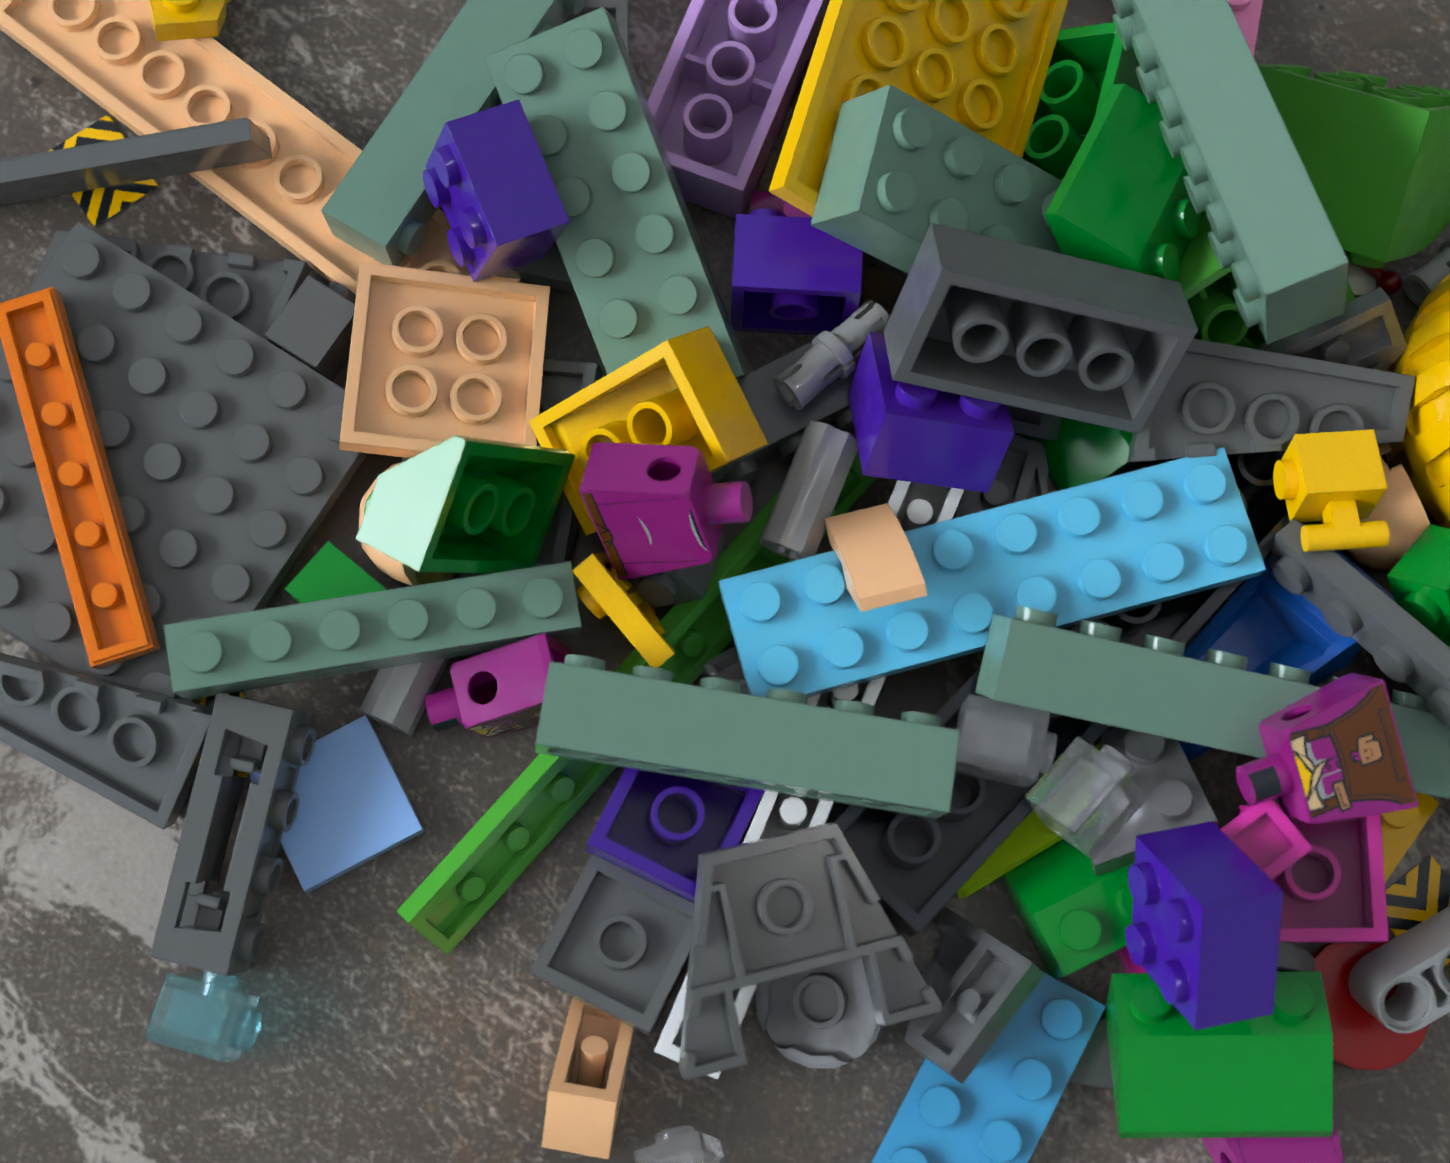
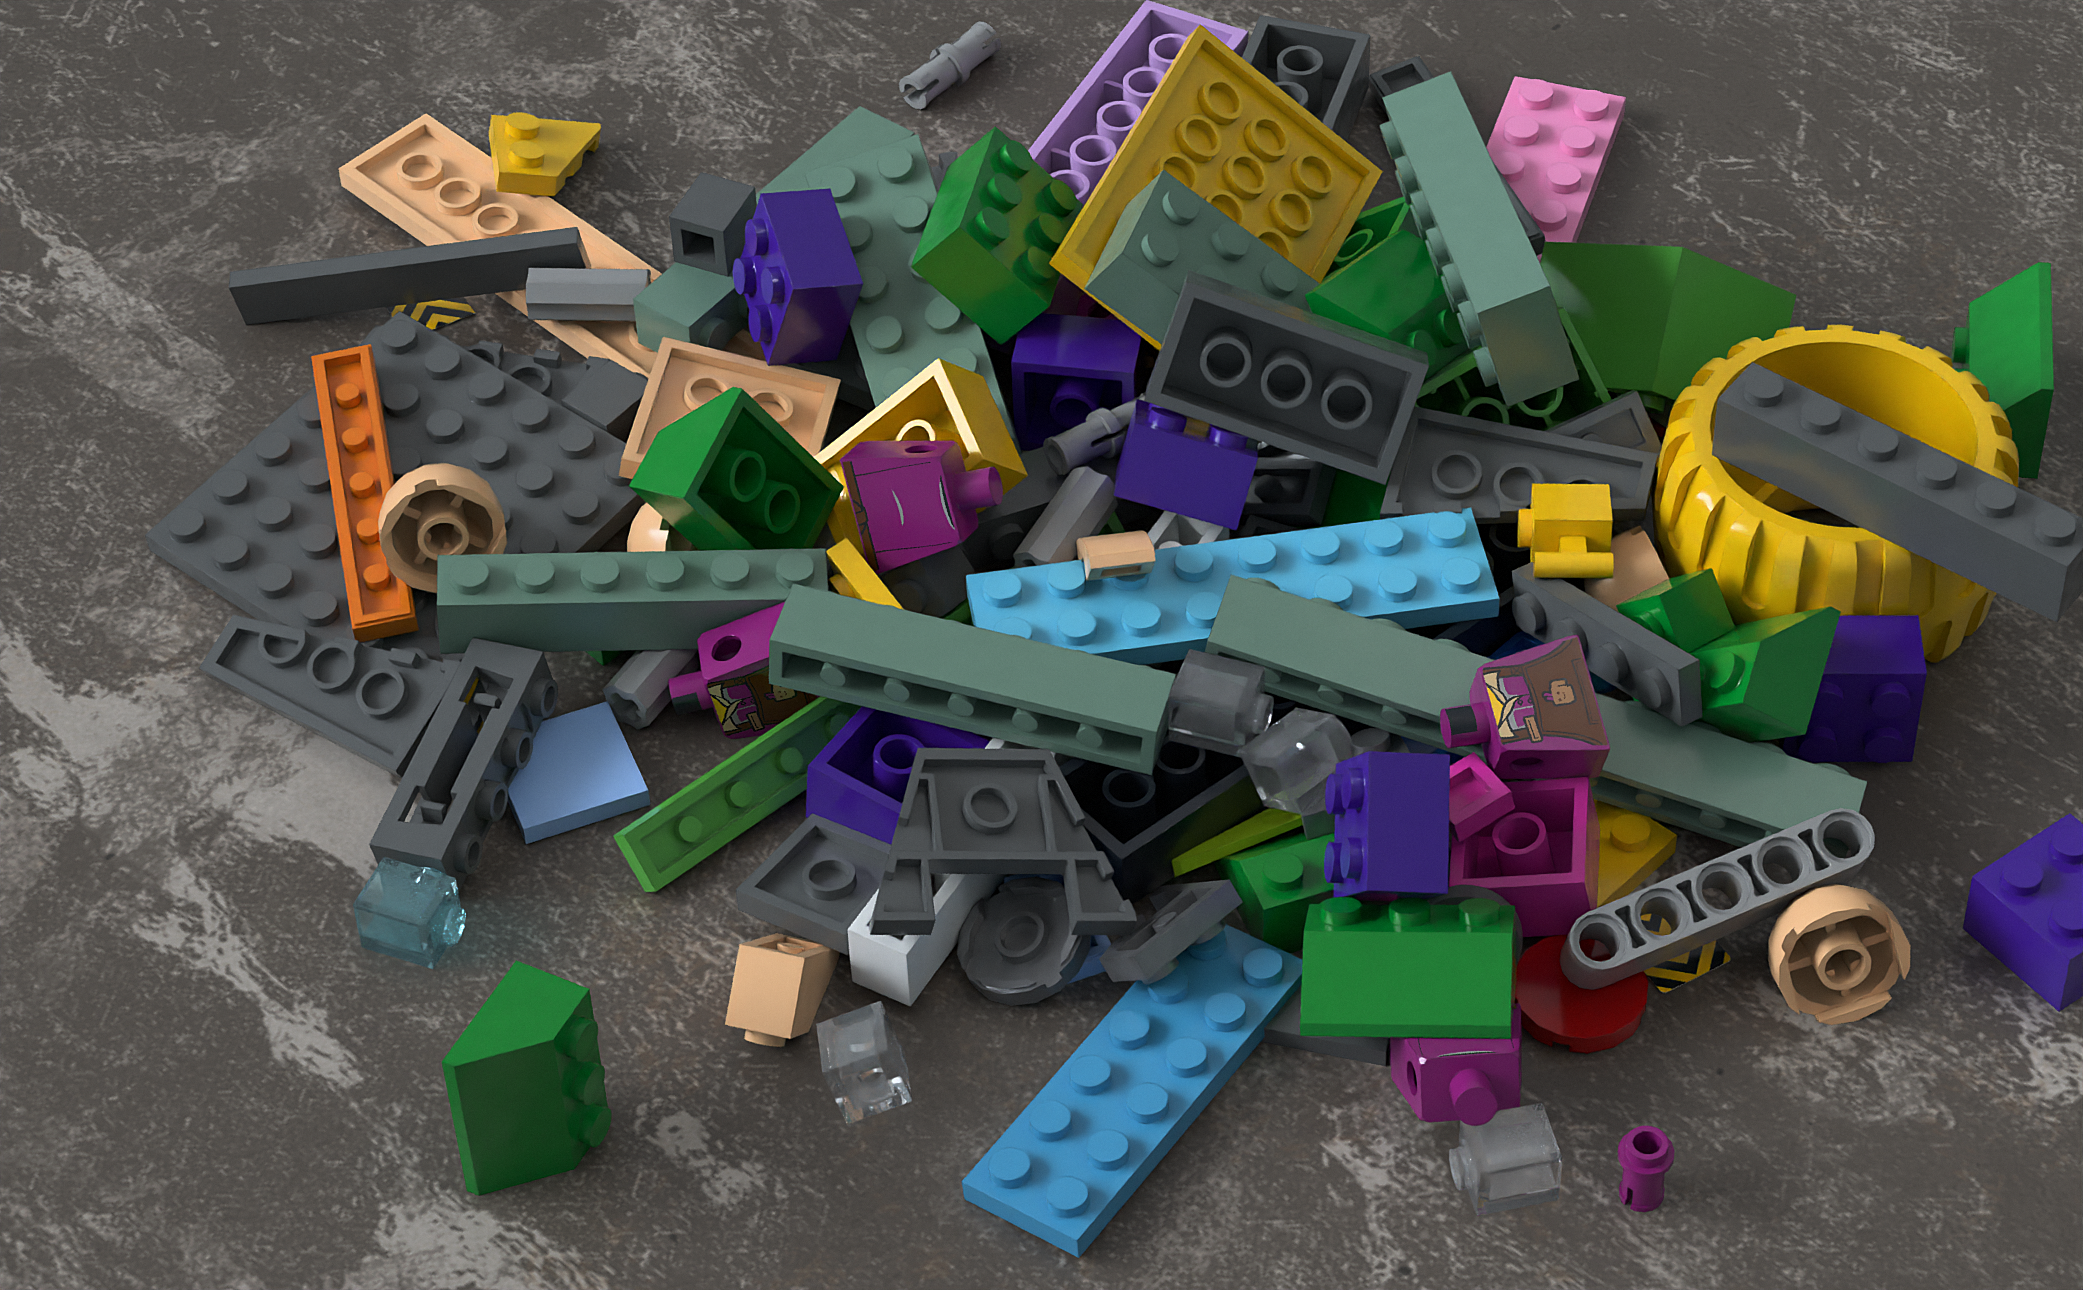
camera: 10 degrees right, 30 degrees down
(160, 547) = (435, 514): none -> light nougat cylinder
(270, 186) = (584, 293): none -> light grey axle
(395, 113) = (711, 223): none -> dark grey brick
(702, 133) = (996, 234): none -> green brick

